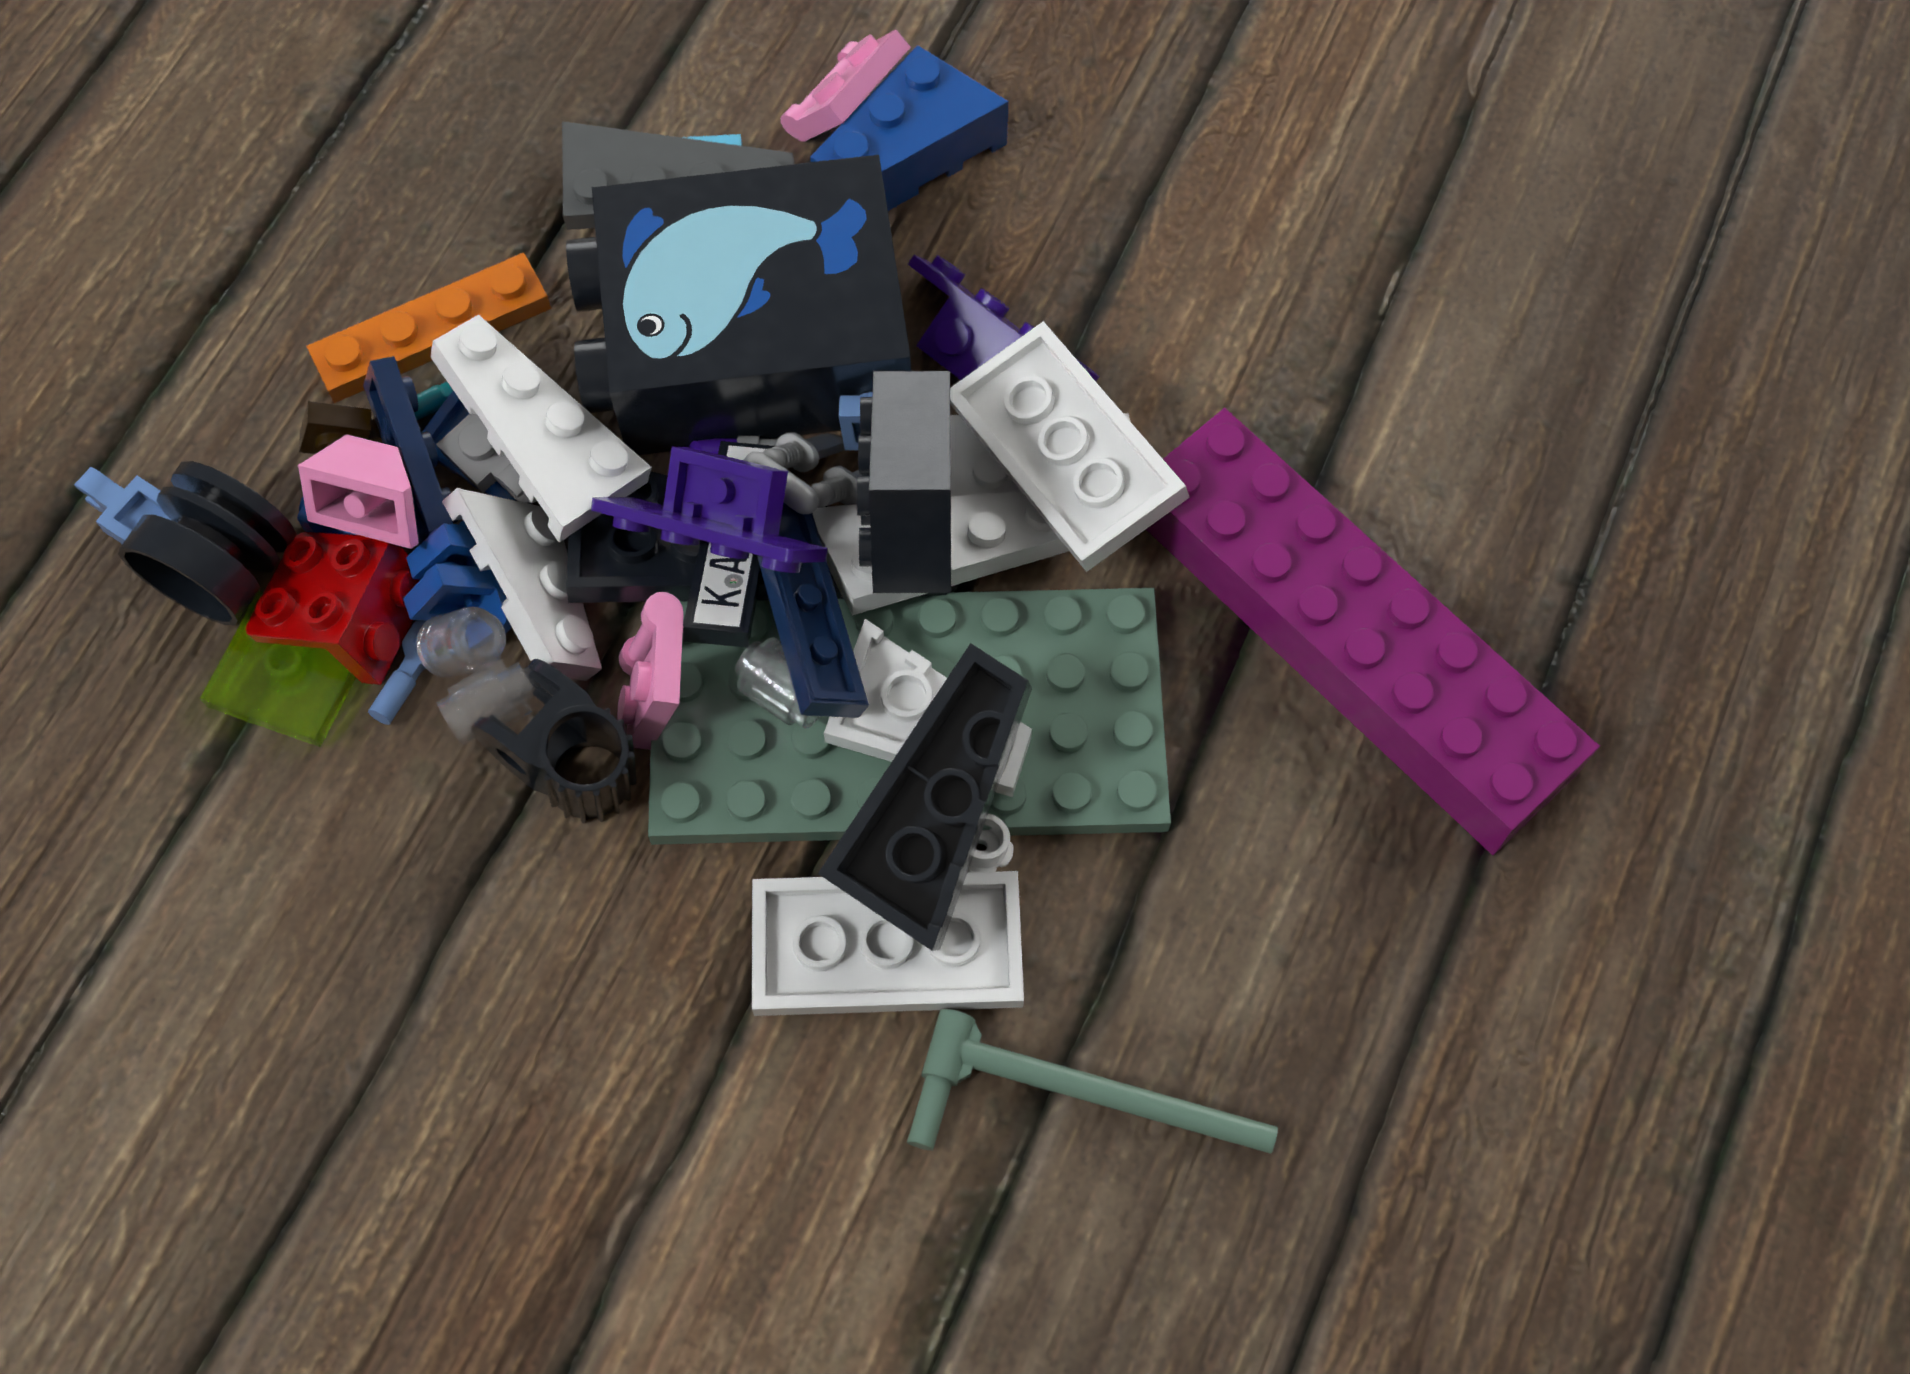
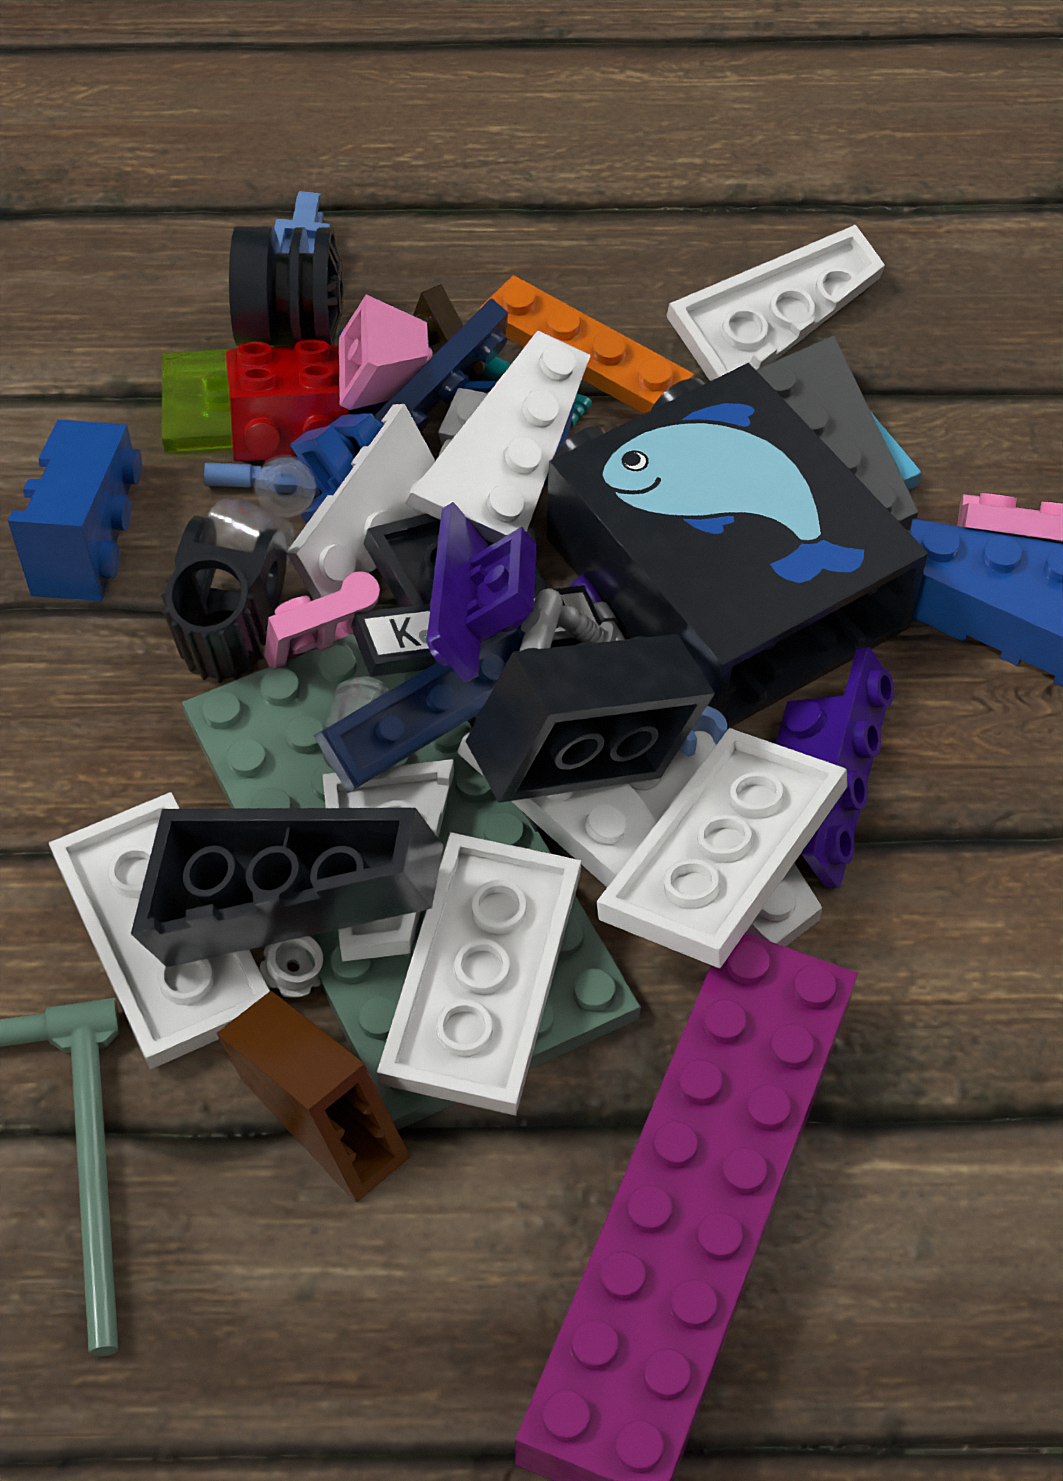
camera: 65 degrees right, 10 degrees down
(363, 843) = (76, 510): none -> blue wedge
(485, 159) = (774, 304): none -> white wing
(1091, 687) = (480, 974): none -> white plate
(1117, 871) = (316, 1093): none -> reddish brown slope

